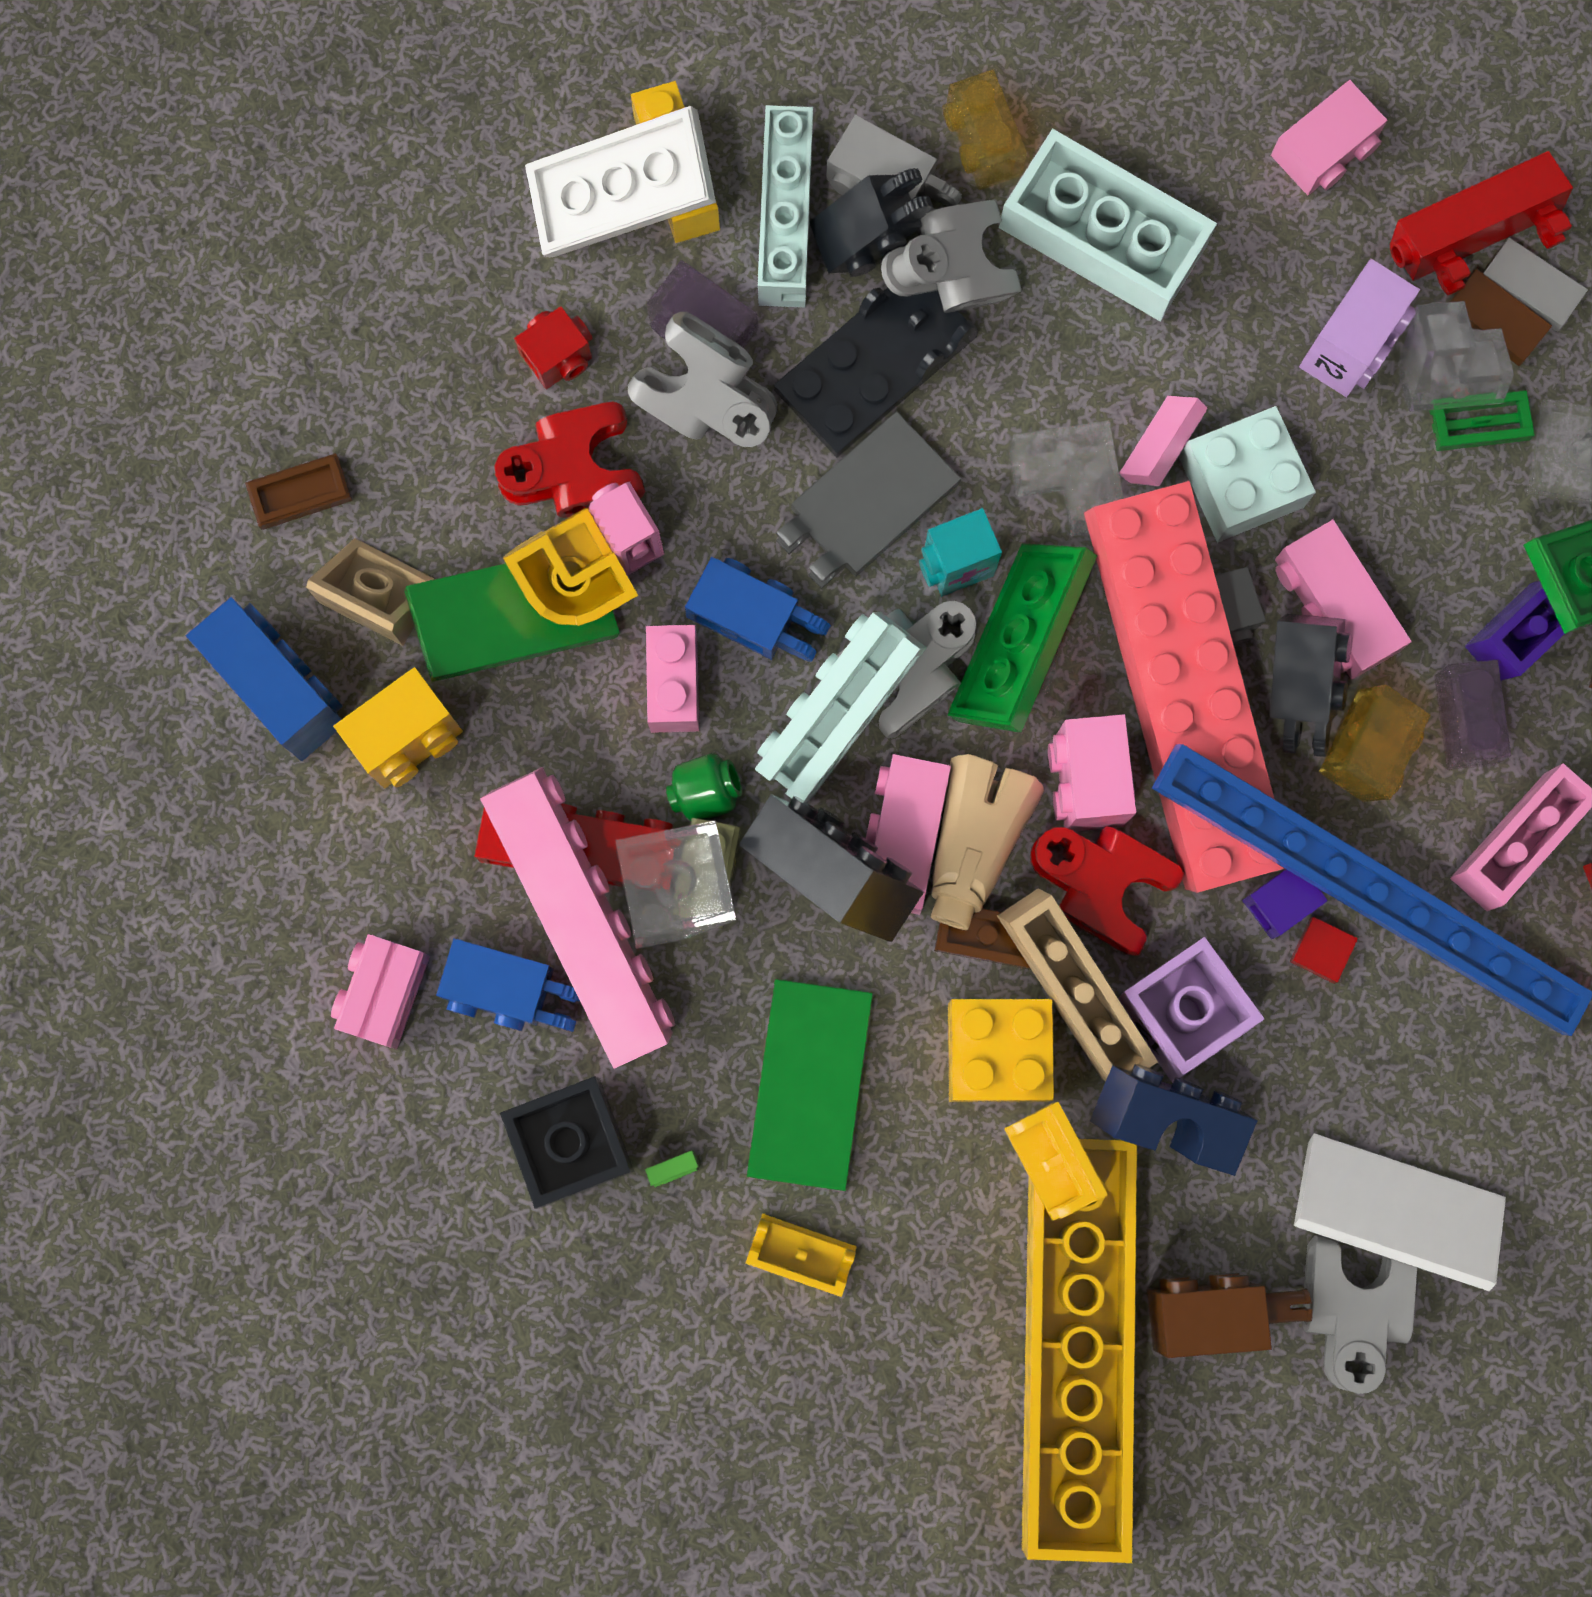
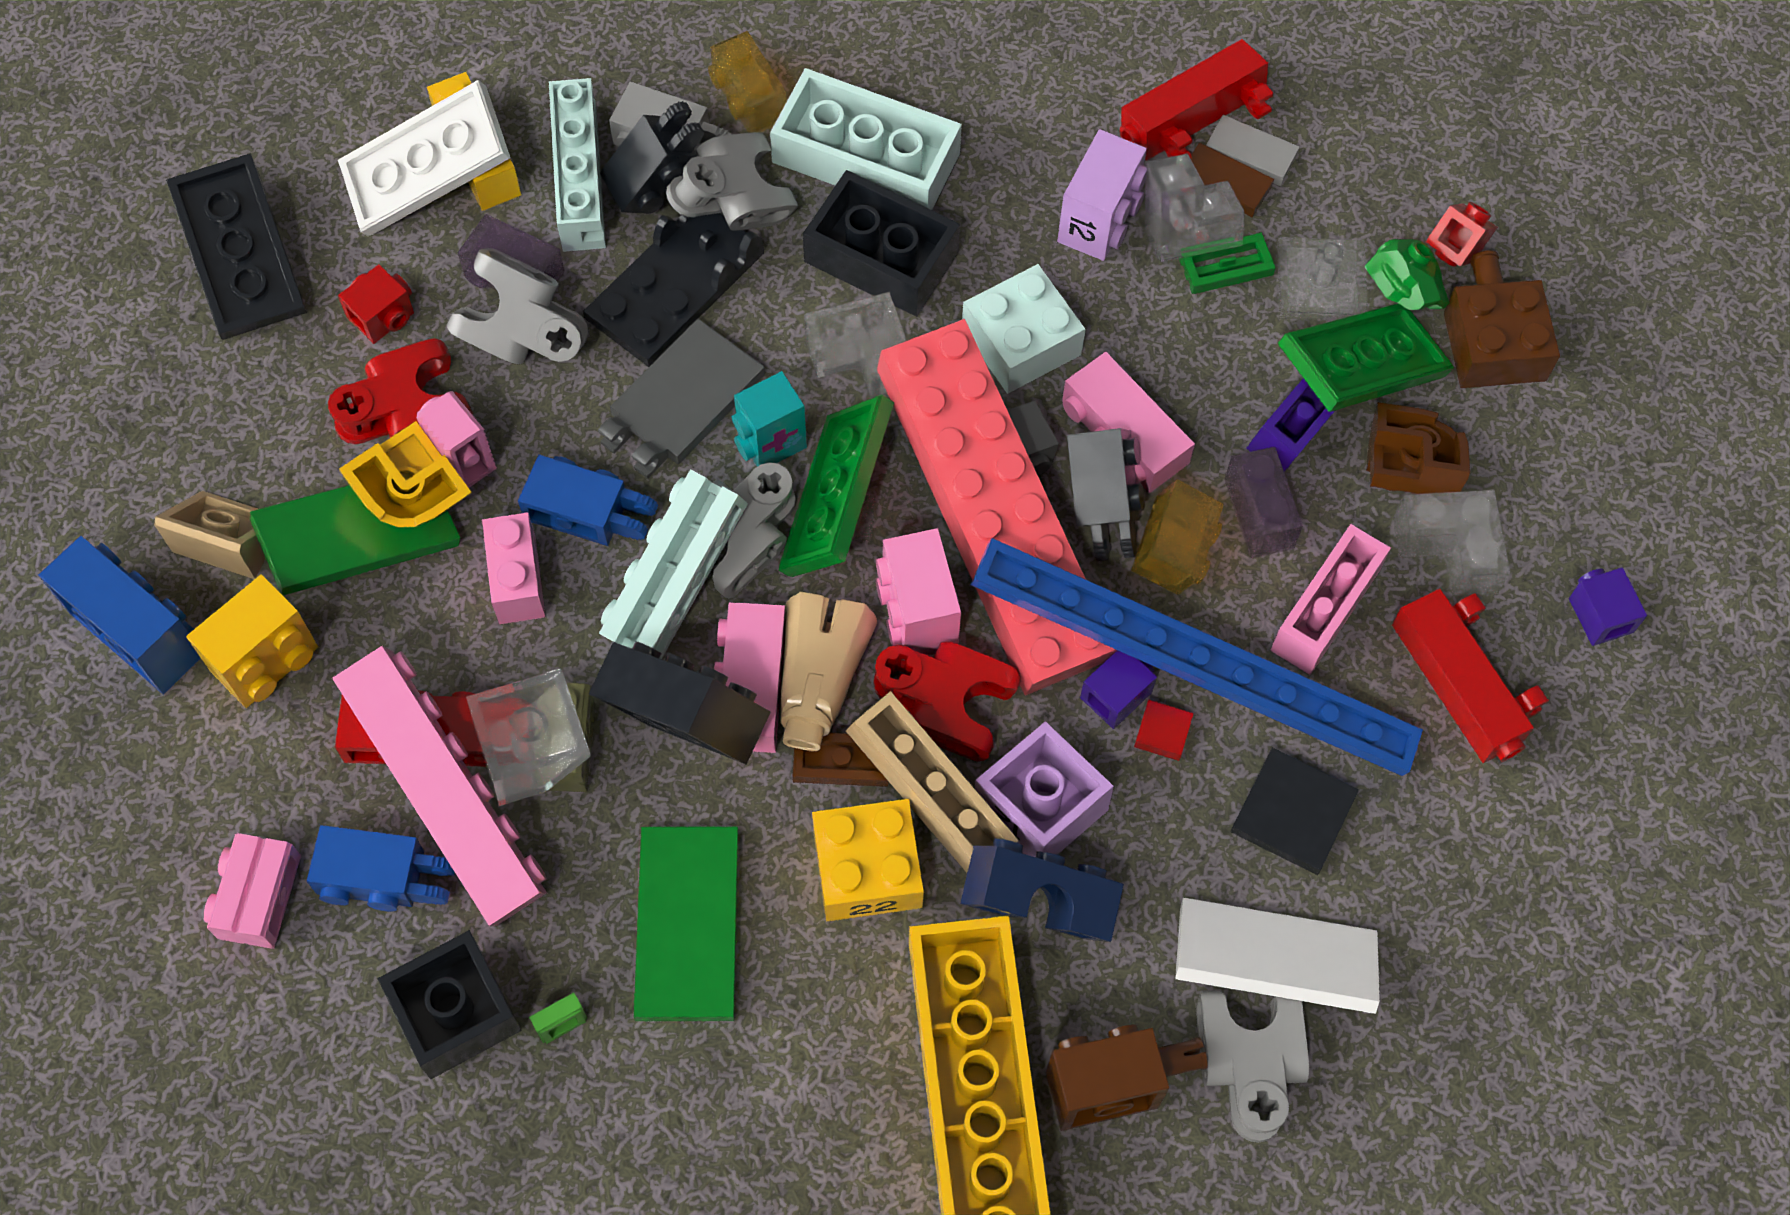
camera: 10 degrees left, 15 degrees down
(298, 491) = (146, 457): reddish brown tile -> none
(408, 258) = (236, 246): none -> black hinge
(704, 787) = (554, 651): green head -> none
(801, 1255) = (695, 1087): yellow hinge -> none
(1055, 1161) = (930, 940): yellow hinge -> none
(1107, 351) = (881, 242): none -> black brick
(1163, 440) = (948, 301): bright pink tile -> none
(1329, 138) = (1052, 56): bright pink brick -> none
(1444, 1057) = (1294, 811): none -> black tile

